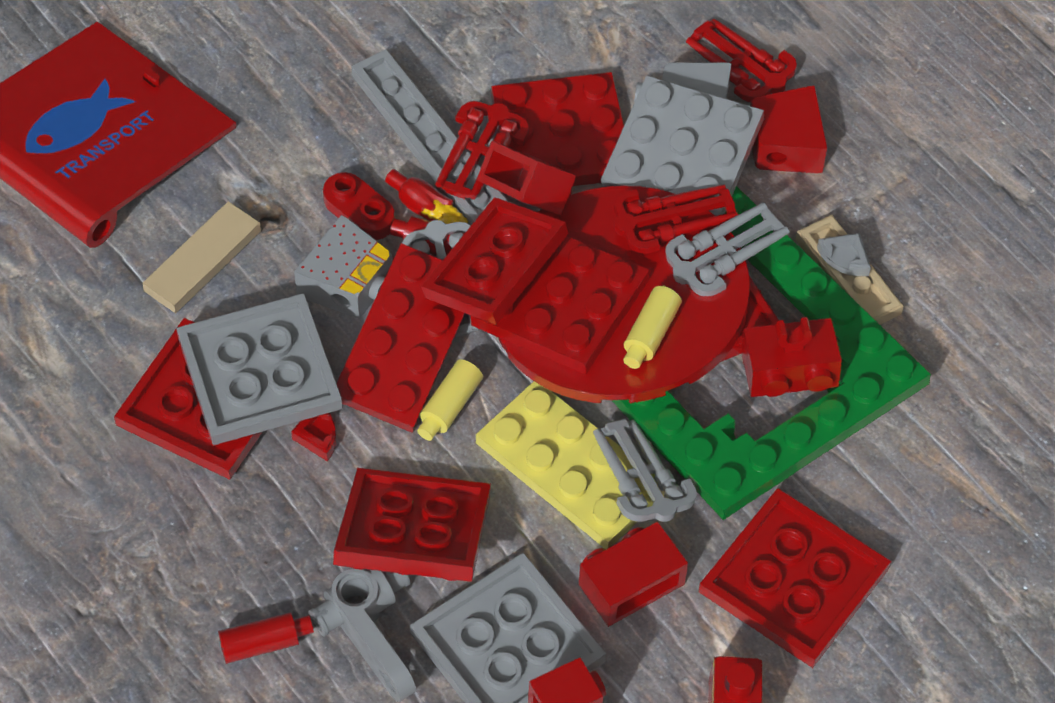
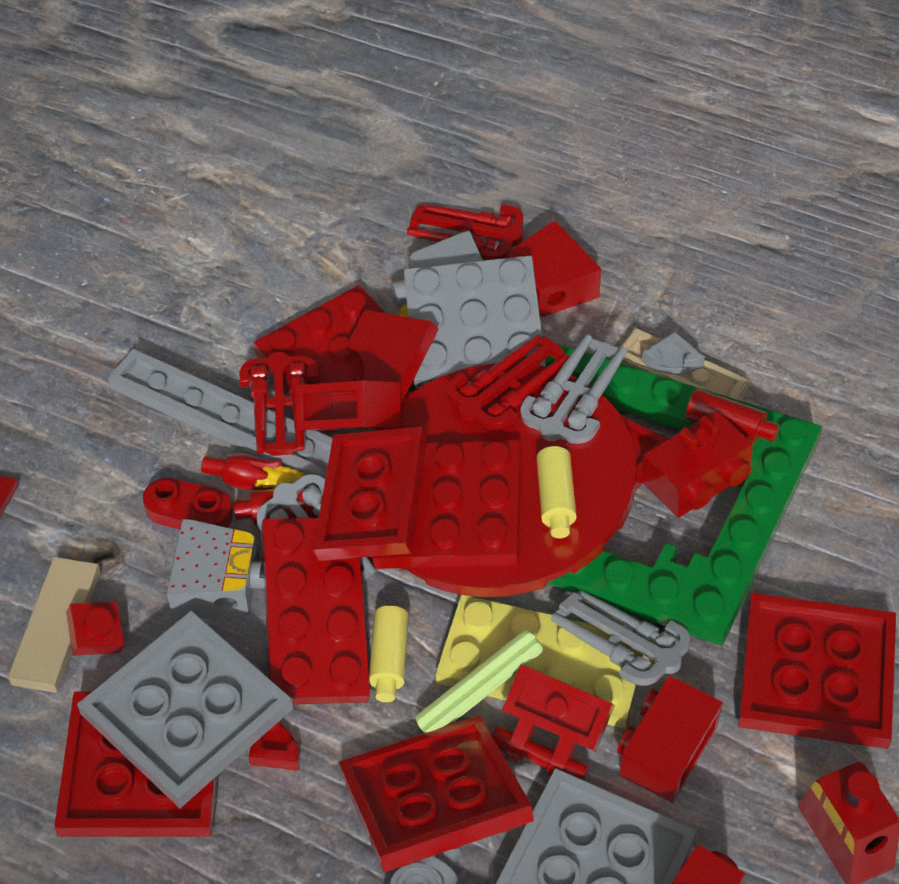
camera: 25 degrees left, 5 degrees down
(228, 274) = (95, 628): none -> red plate
(504, 456) = (480, 682): none -> yellowish green axle
(552, 507) = (555, 708): none -> red plate
(593, 143) = (391, 347): none -> red tile
(849, 330) = (745, 419): none -> red cylinder

